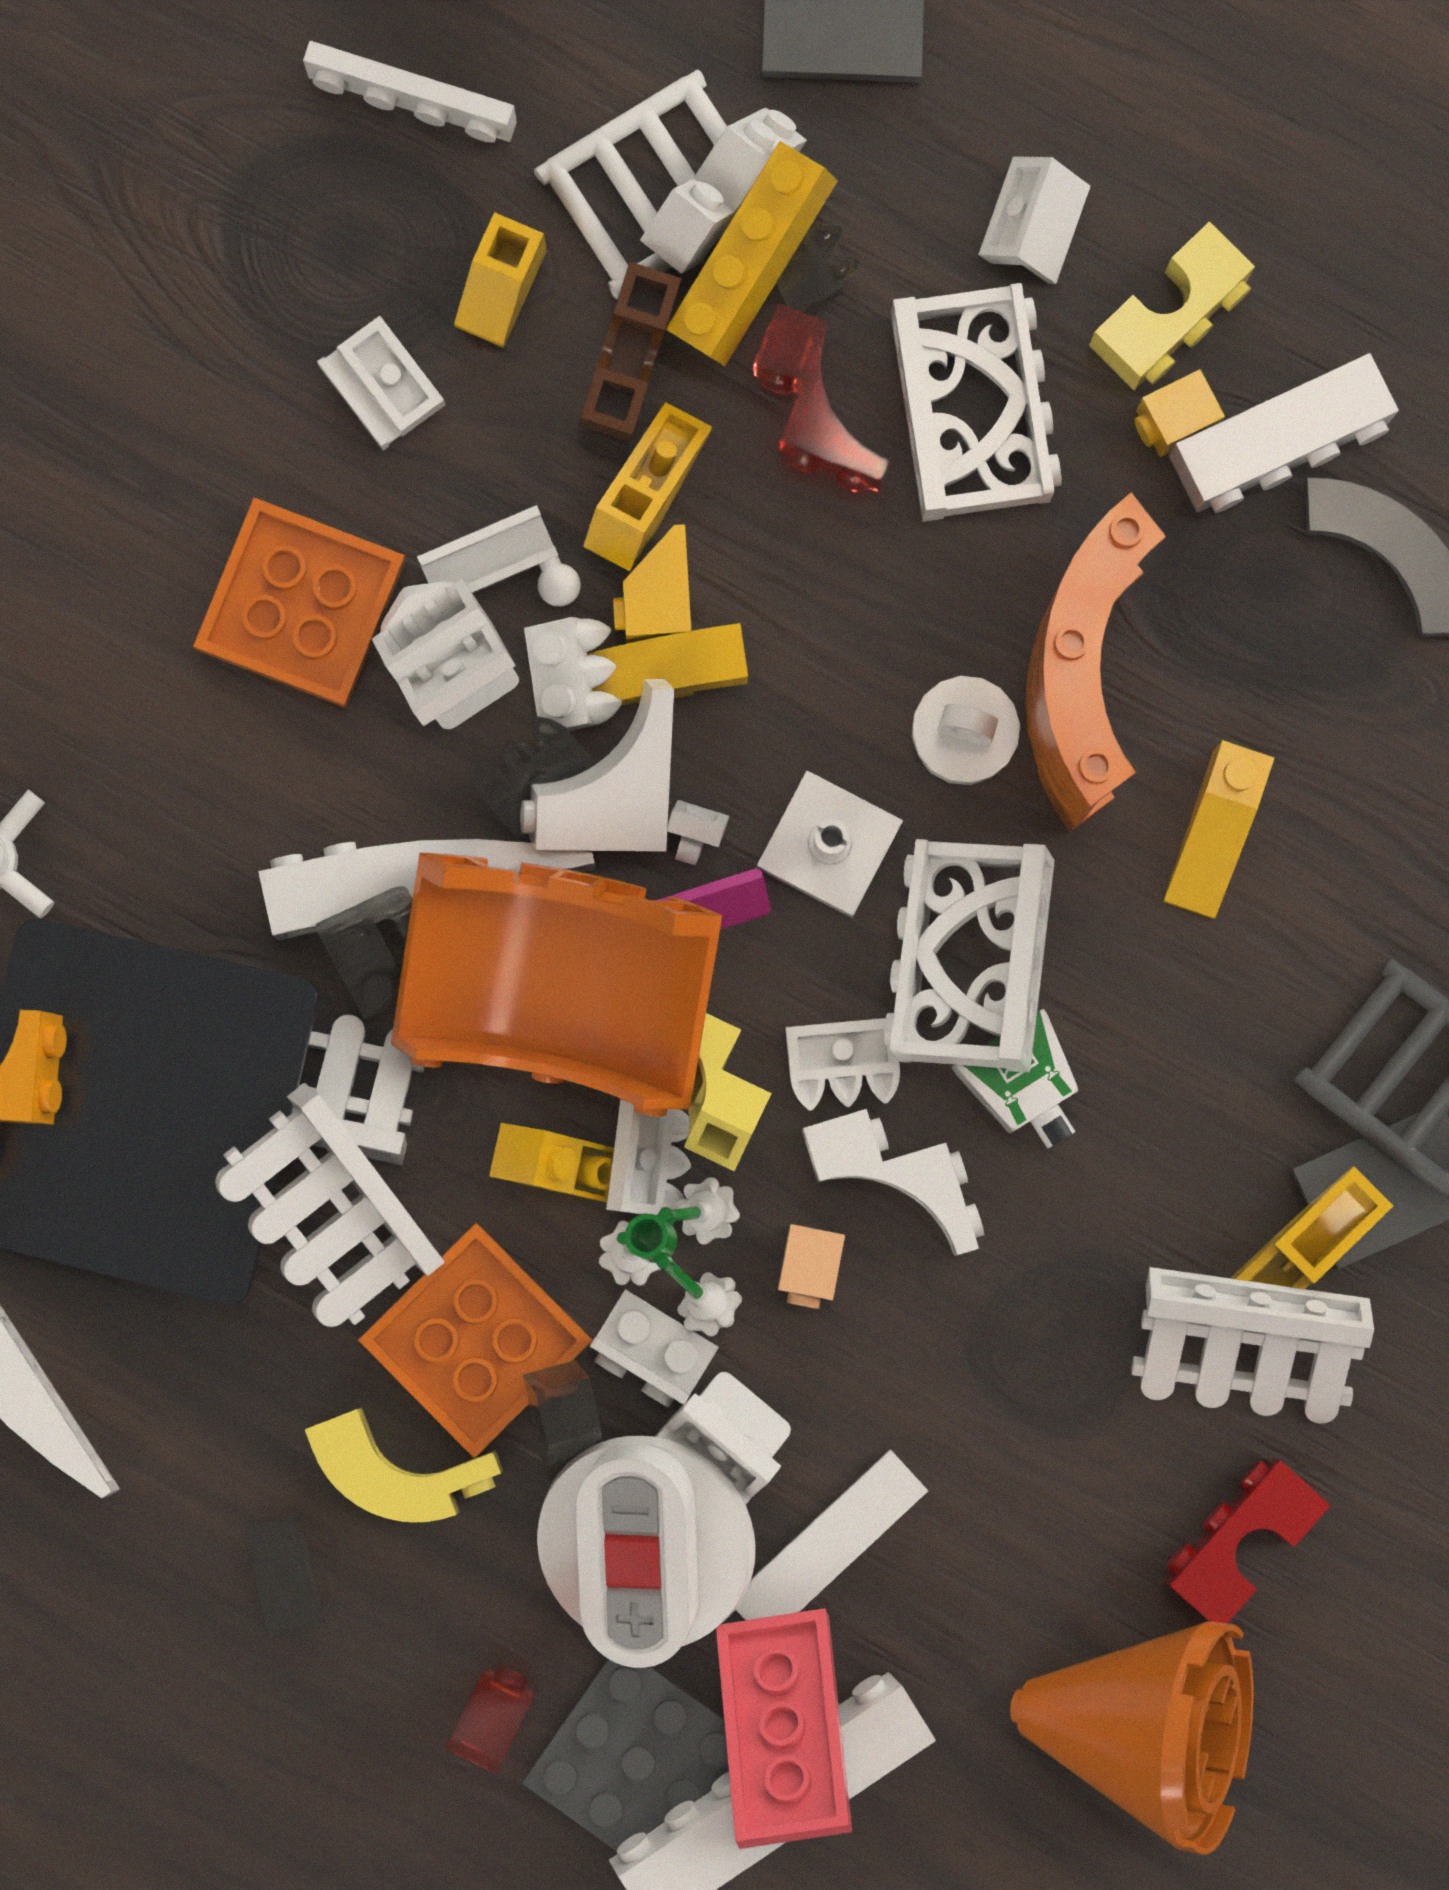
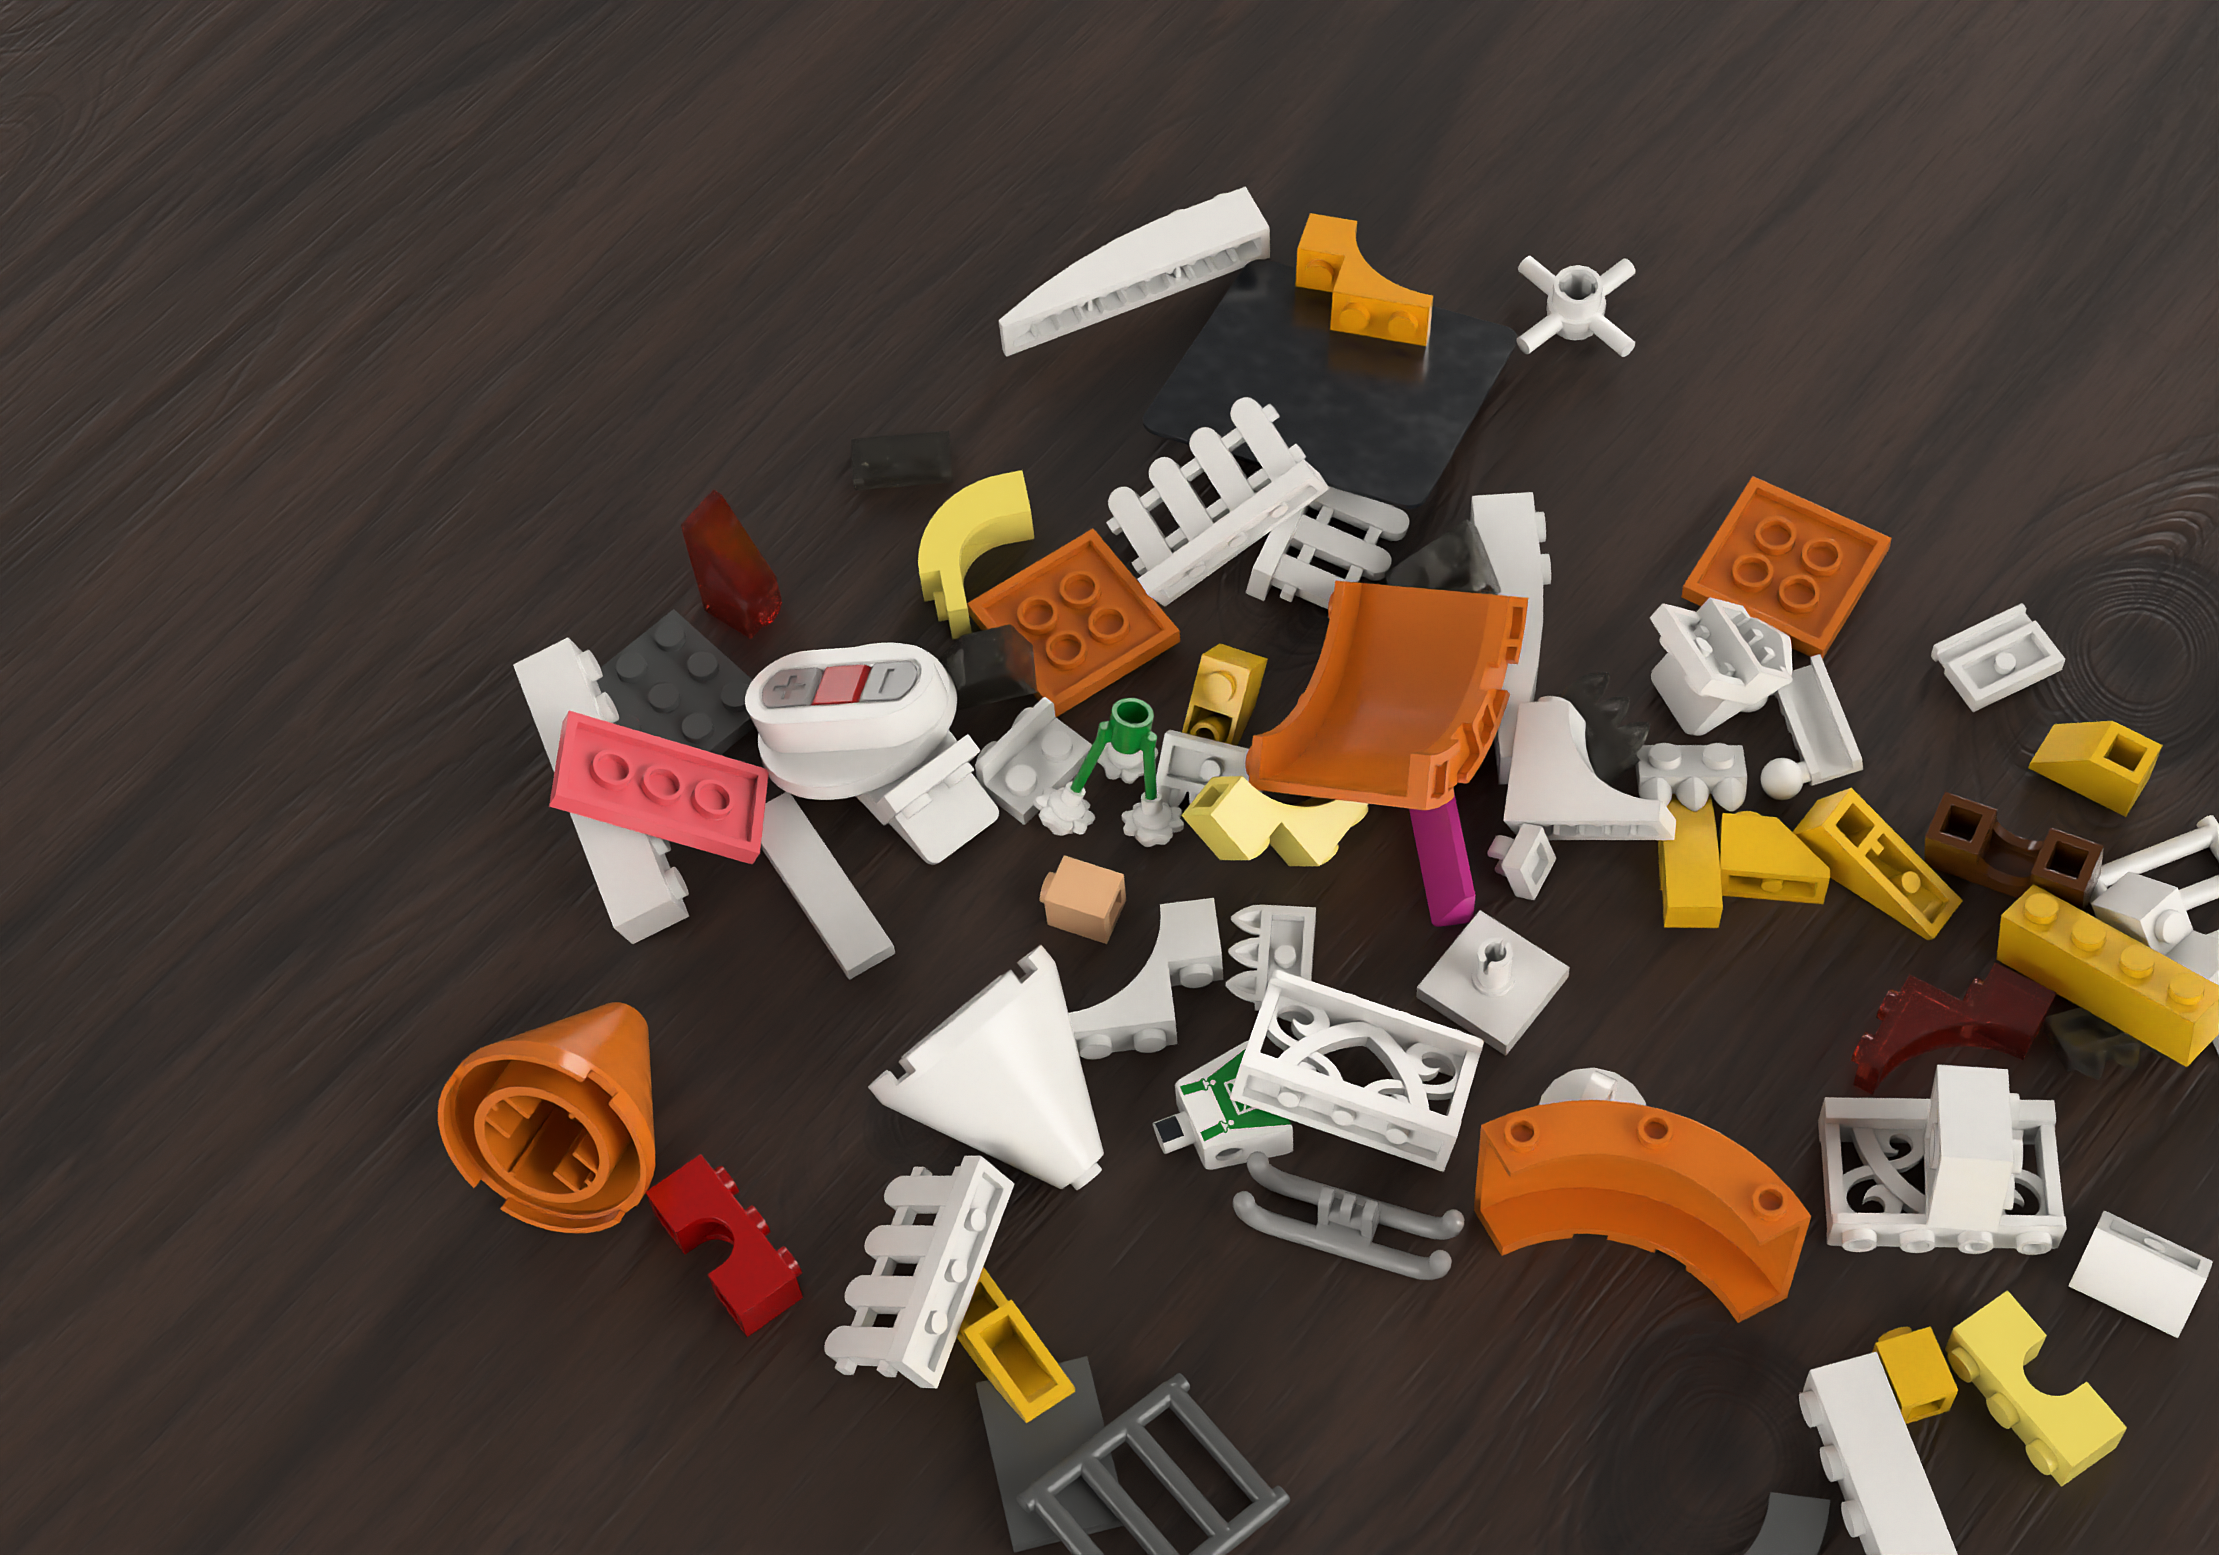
camera: 110 degrees right, 25 degrees down
(981, 367) = (1970, 1148): none -> white brick
(1037, 1312) = (1006, 1078): none -> white cone
(1112, 944) = (1347, 1222): none -> light grey piece
(1218, 828) = (1458, 1342): yellow slope -> none

